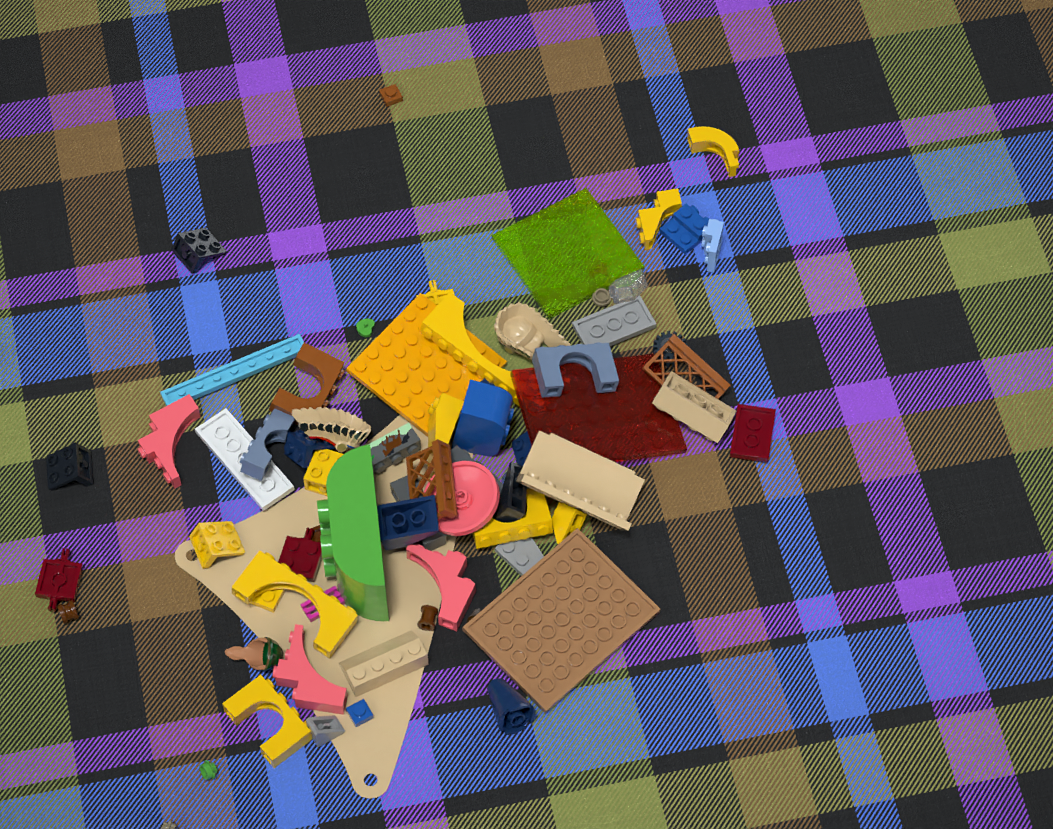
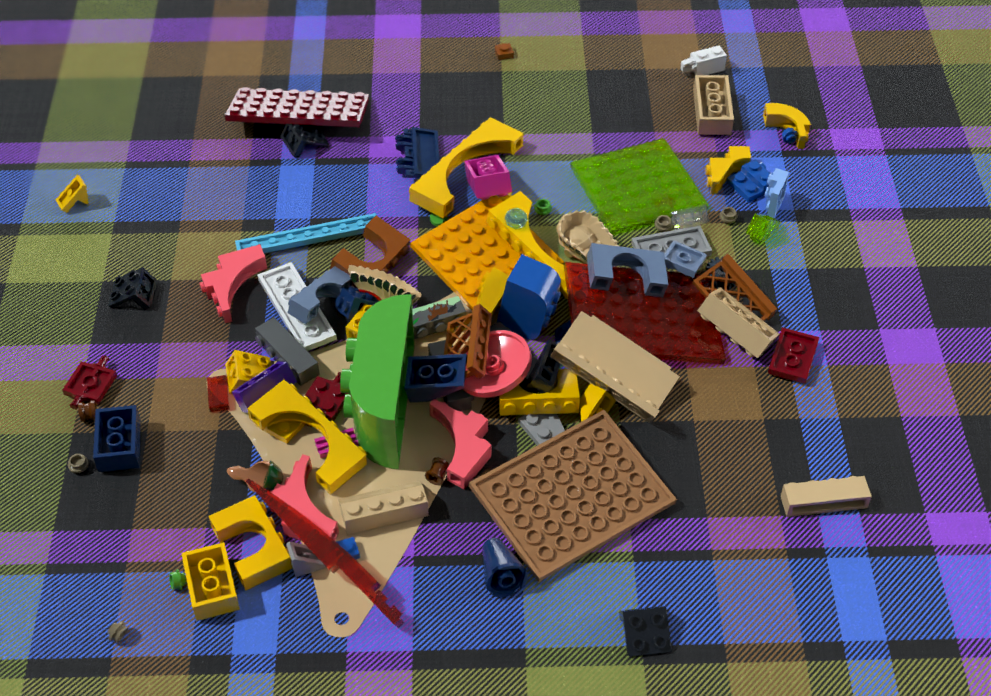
camera: 10 degrees right, 10 degrees down
(75, 669) = (78, 463): none -> dark tan plate
(108, 637) = (117, 438): none -> dark blue brick
(182, 212) = (297, 107): none -> plate
(191, 569) = (218, 393): none -> clear red tile
(237, 556) = (263, 383): none -> dark purple brick
(241, 767) = (210, 581): none -> yellow brick
(248, 512) = (286, 348): none -> dark grey brick
(329, 248) = (420, 151): none -> dark blue hinge
(346, 719) = (329, 551): none -> clear red slope
(400, 219) = (490, 138): none -> yellow arch
(410, 274) = (488, 177): none -> dark pink brick
(452, 332) = (516, 218): none -> clear light blue plate
(472, 292) = (542, 207): none -> bright green plate
(615, 79) = (705, 61): none -> white hinge
(629, 341) = (684, 259): none -> sand blue plate
(632, 138) = (713, 105): none -> tan brick
(651, 743) = (646, 630): none -> black bracket
(667, 276) = (728, 215): none -> dark tan plate
(703, 286) = (761, 227): none -> clear neon green arch
(718, 163) = (789, 135): none -> blue plate
(799, 581) = (825, 496): none -> tan brick

